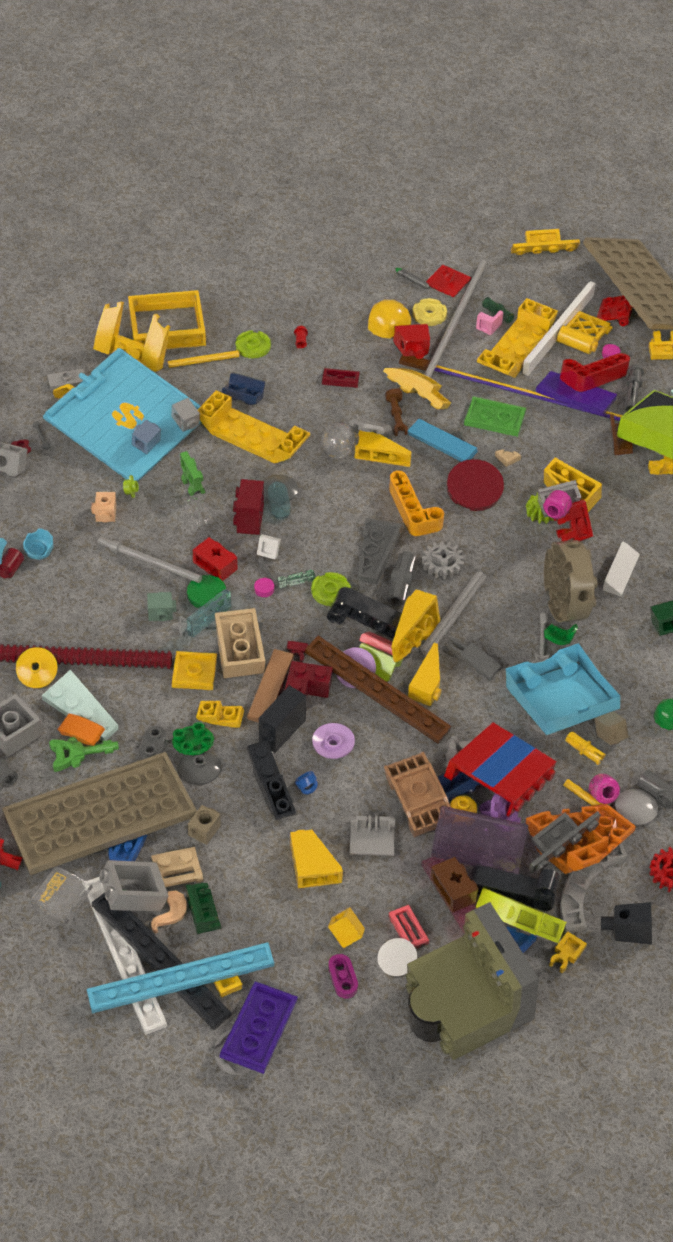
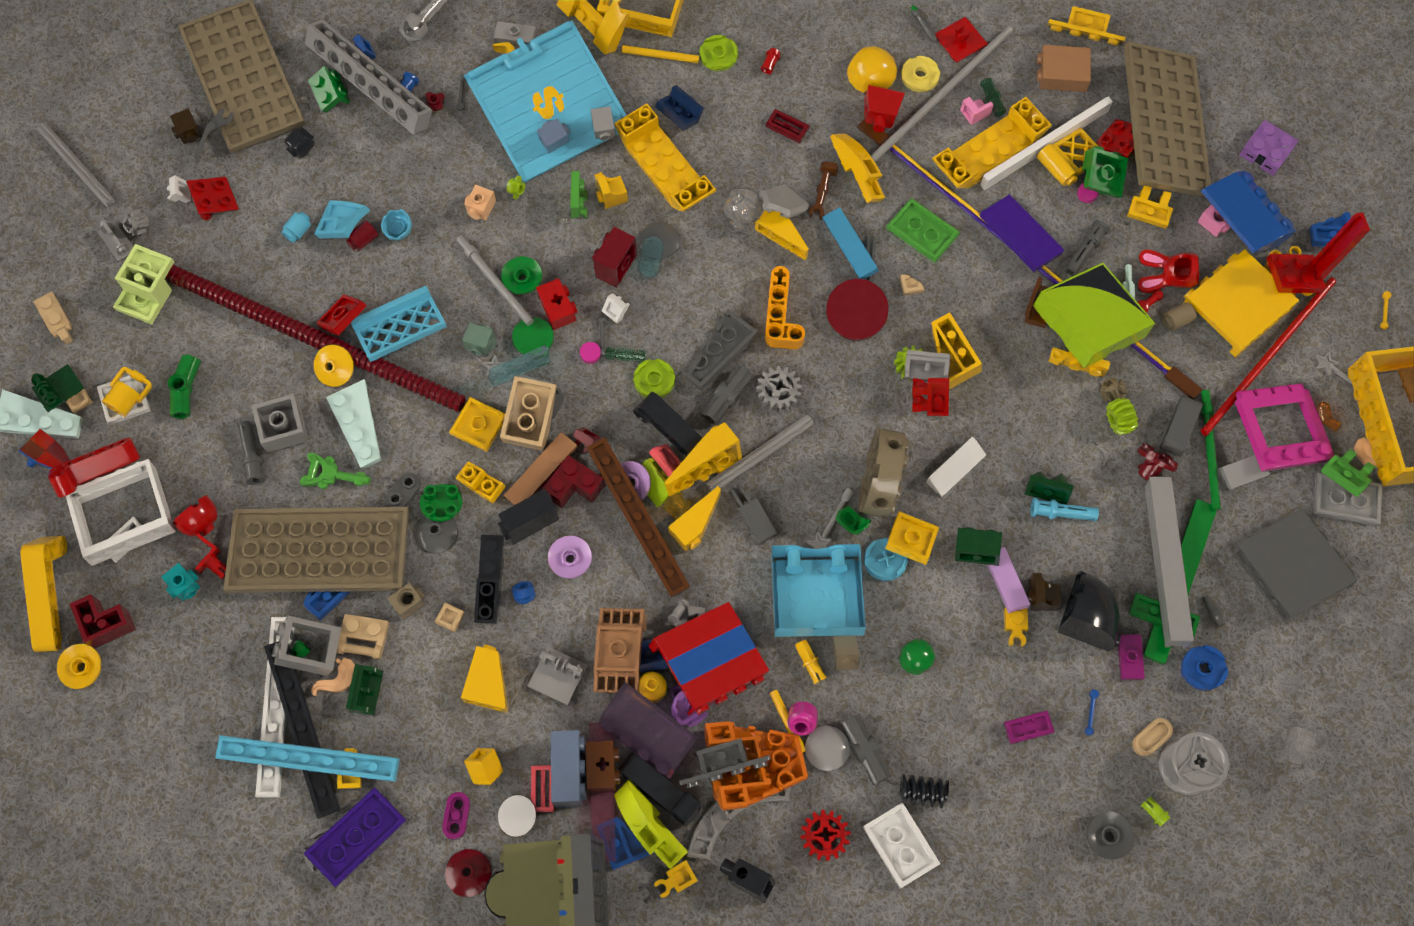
camera: 25 degrees right, 20 degrees up
(24, 625) = (341, 314): none -> red plate
(61, 894) = (246, 622): clear tile -> none
(75, 608) = (393, 314): none -> medium azure fence
(82, 729) = (341, 452): orange slope -> none
(172, 548) = (521, 267): none -> green dish
(216, 464) = (610, 190): none -> yellow brick
(249, 826) = (449, 617): none -> tan tile
(377, 1029) = (476, 881): none -> dark red dish
(405, 671) = (677, 505): none -> clear yellow tile
(426, 896) = (568, 769): none -> sand blue brick
(543, 274) = (1064, 68): none -> medium nougat brick
(557, 504) = (917, 376): dark pink head -> none
(594, 374) = (1053, 218): red beam -> none
(604, 653) = (884, 563): none -> medium azure tile
(616, 629) = (912, 538): none -> yellow plate
(617, 331) = (1104, 171): none -> green plate

